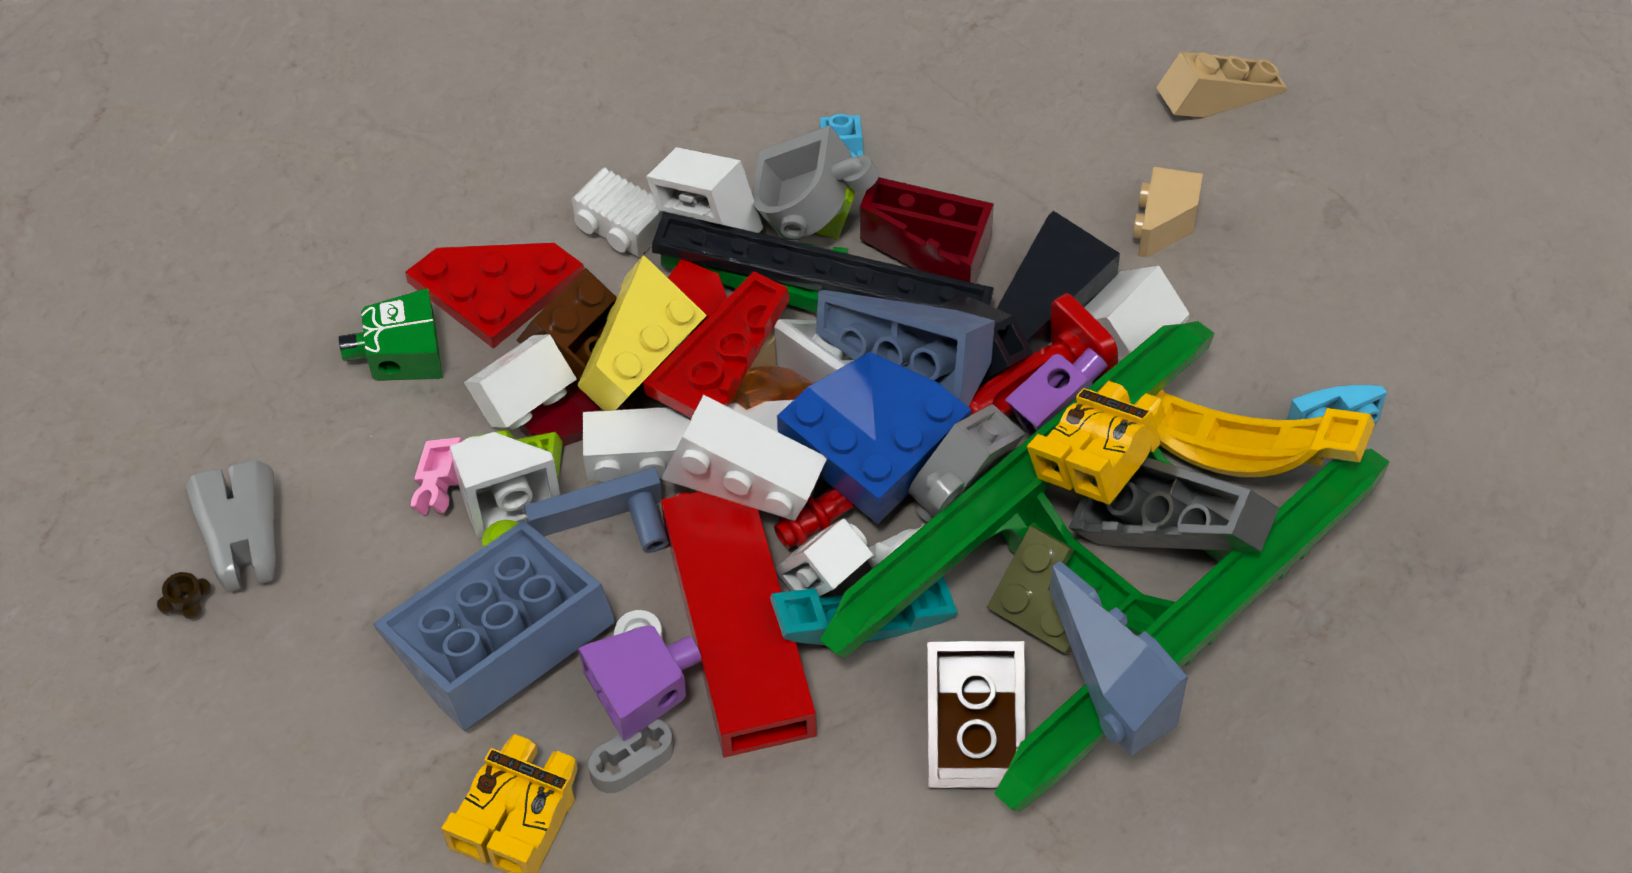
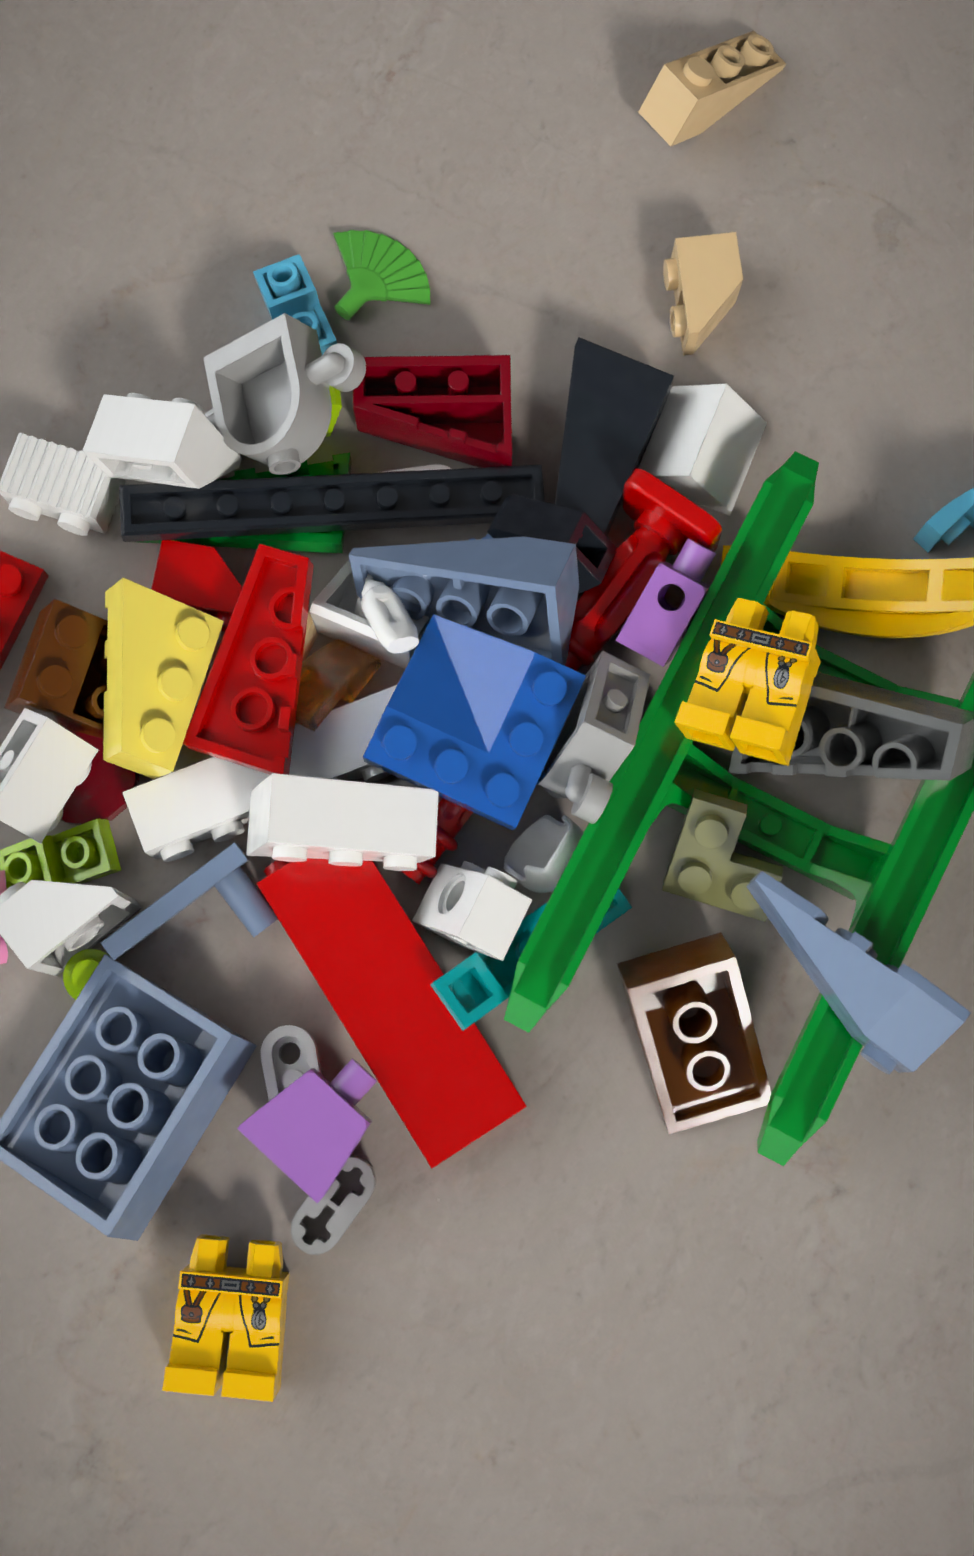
camera: 20 degrees left, 25 degrees up
(833, 342) = (388, 617): none -> white piece
(917, 143) = (379, 271): none -> bright green hand

